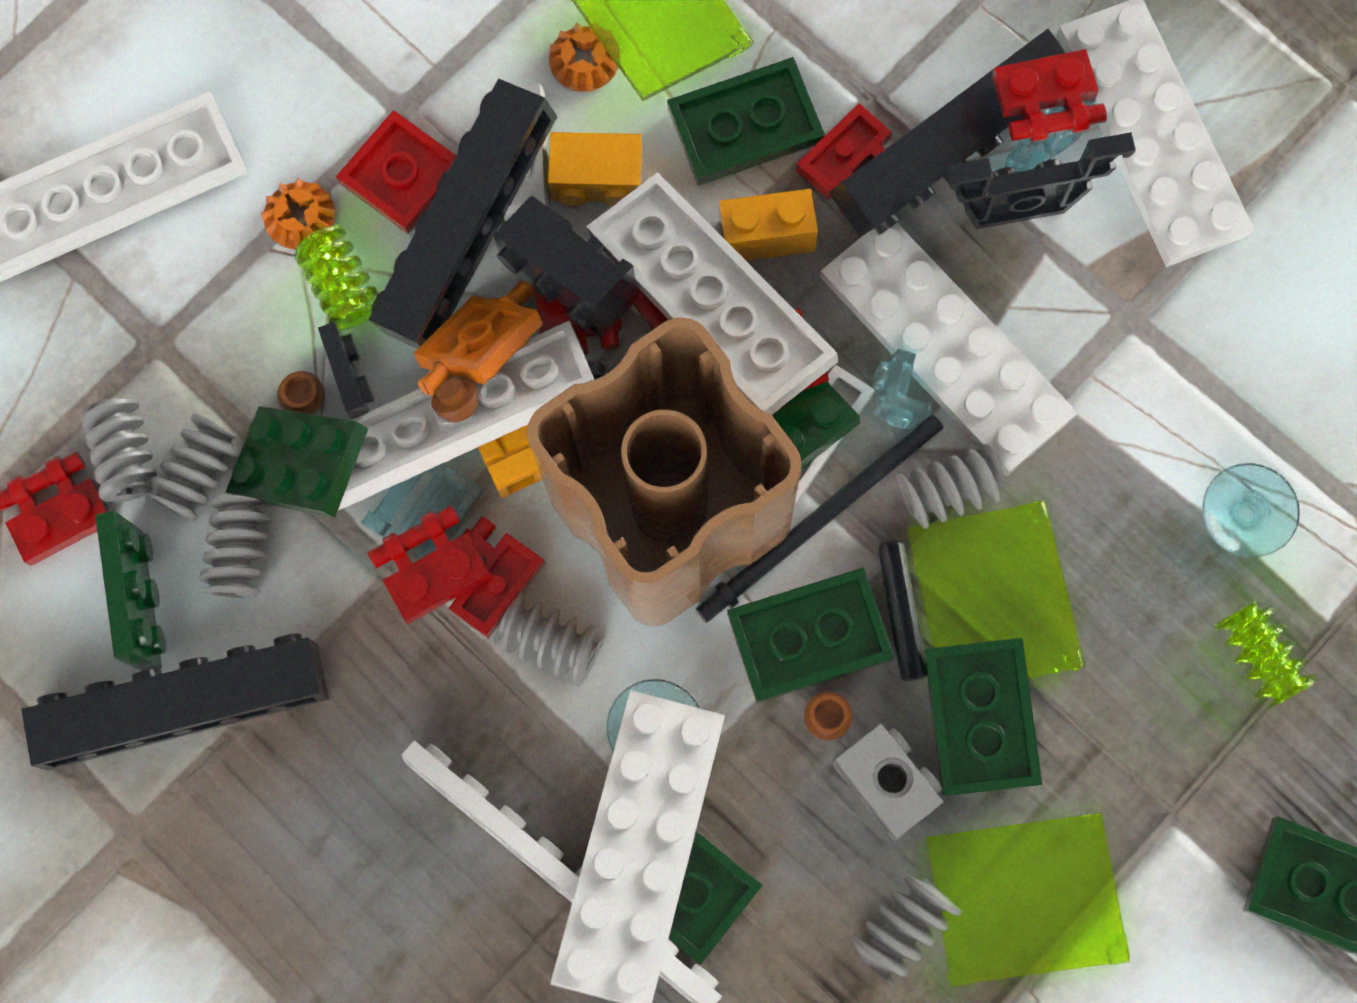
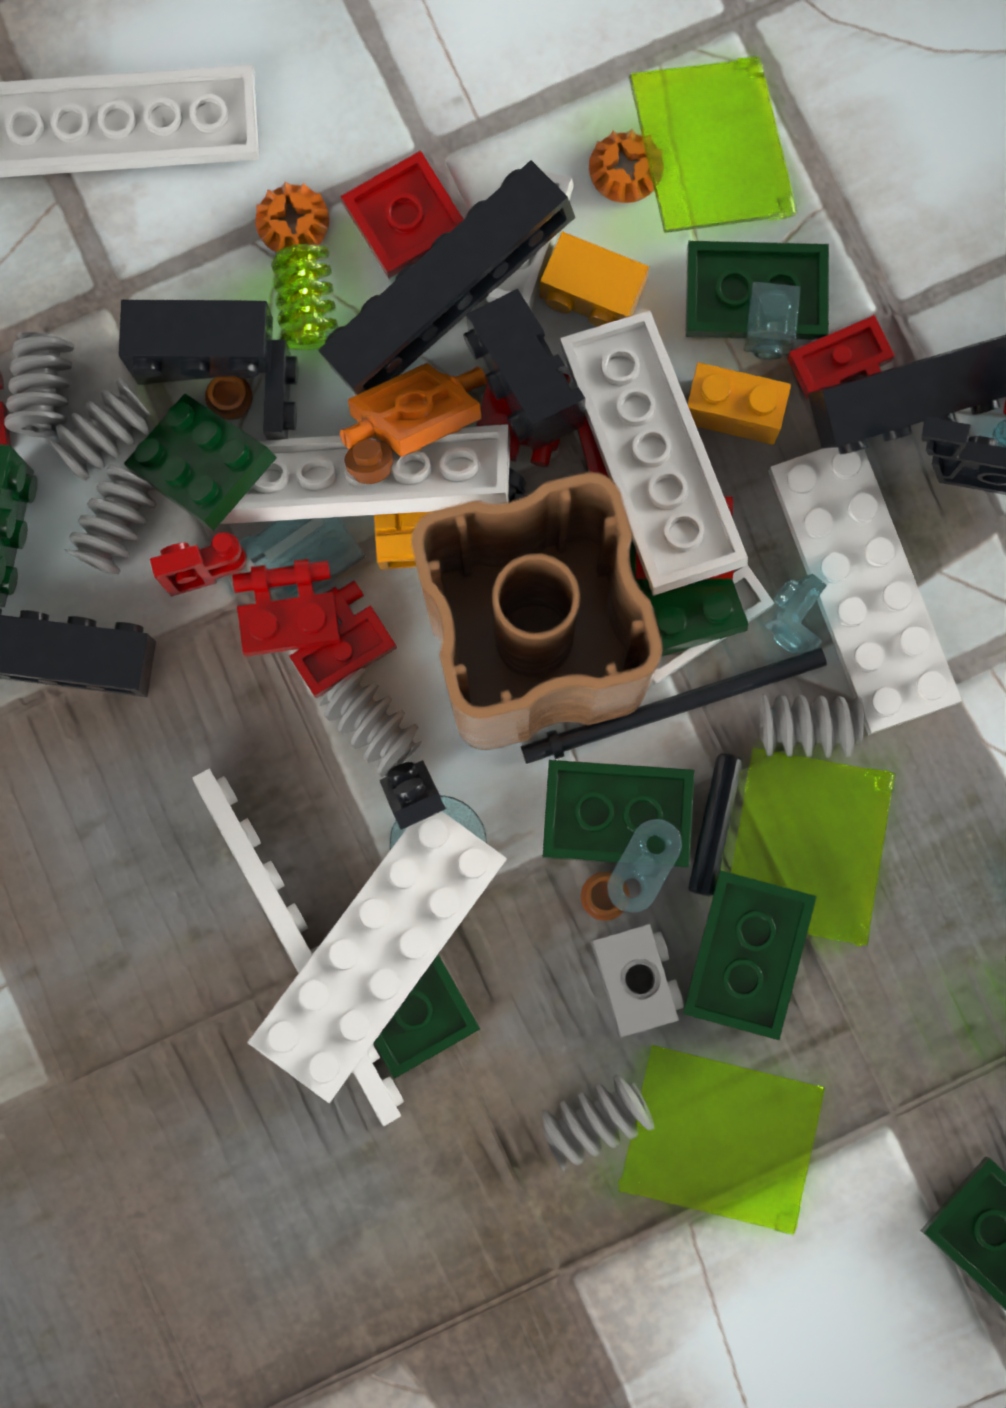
camera: 20 degrees right, 5 degrees up
(250, 351) = (195, 339): none -> black wedge
(326, 561) = (188, 567): none -> red plate
(613, 689) = (411, 793): none -> black plate
(770, 141) = (772, 320): none -> clear light blue bracket
(854, 673) = (644, 866): none -> clear light blue plate

